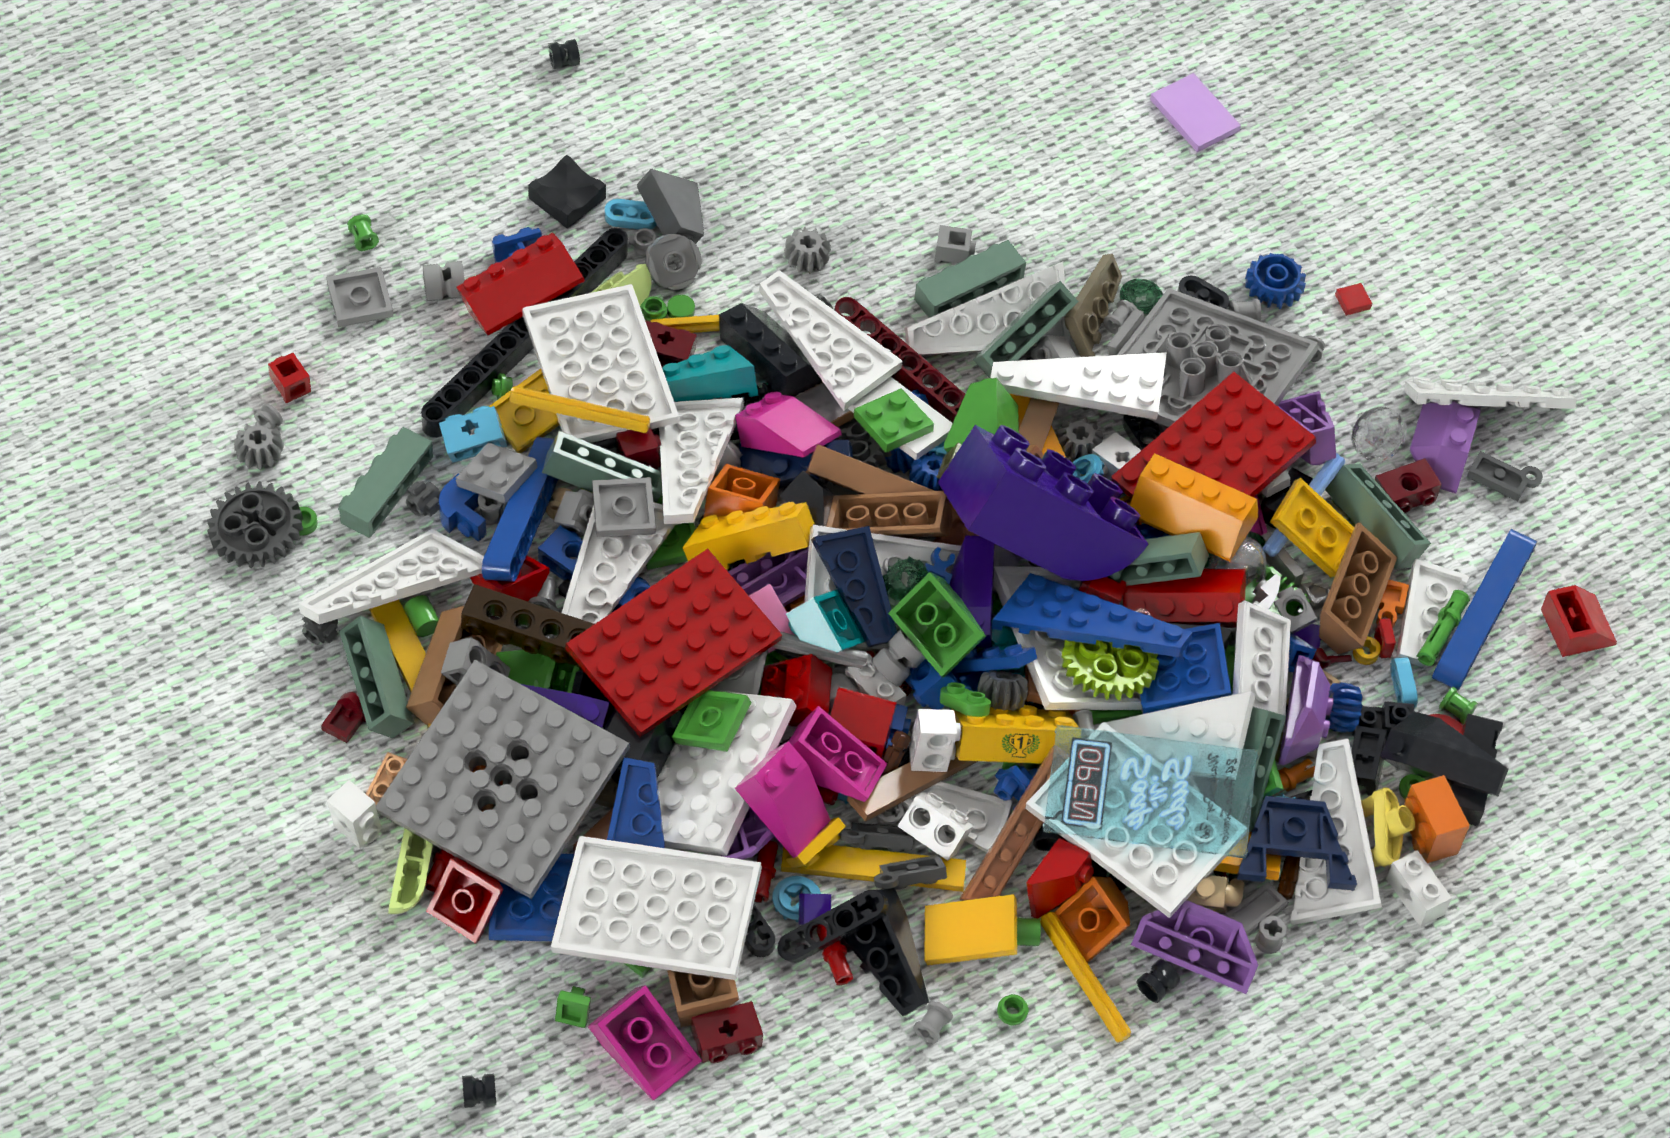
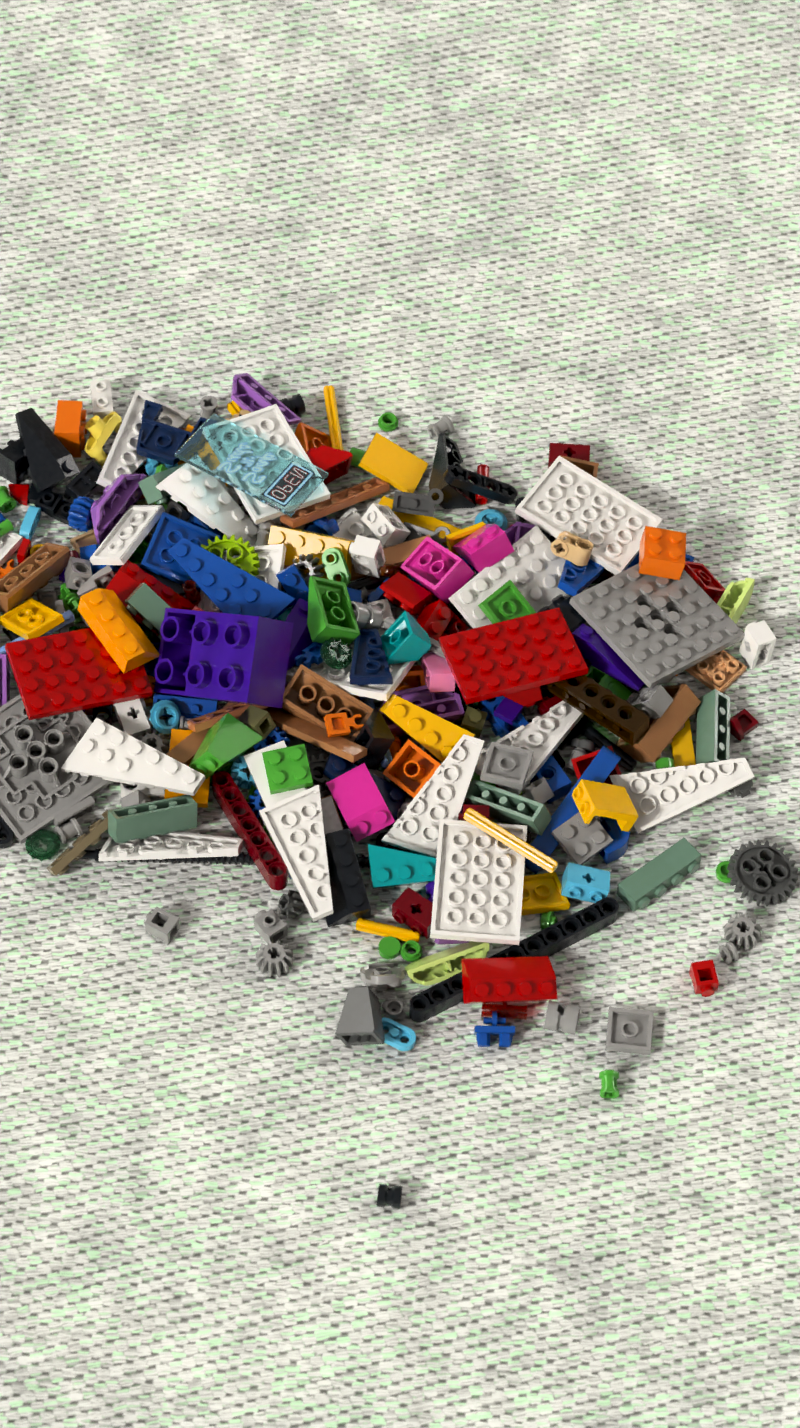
camera: 155 degrees left, 0 degrees up
(423, 498) = (637, 852): dark grey gear -> none
(479, 1090) = (736, 475): black wheel -> none
(480, 502) = (605, 801): none -> yellow panel
(527, 856) = (662, 553): none -> orange brick
(567, 192) = (438, 1066): black brick -> none
(573, 1007) = (656, 502): bright green tile -> none
(645, 1042) = (623, 470): dark pink slope -> none
(661, 831) = (574, 548): none -> tan piece
(813, 906) = (484, 507): dark purple tile -> none
(829, 282) = (275, 930): none -> light grey brick
(855, 492) = (339, 725): none -> orange plate
(970, 279) = (164, 892): sand green brick -> none

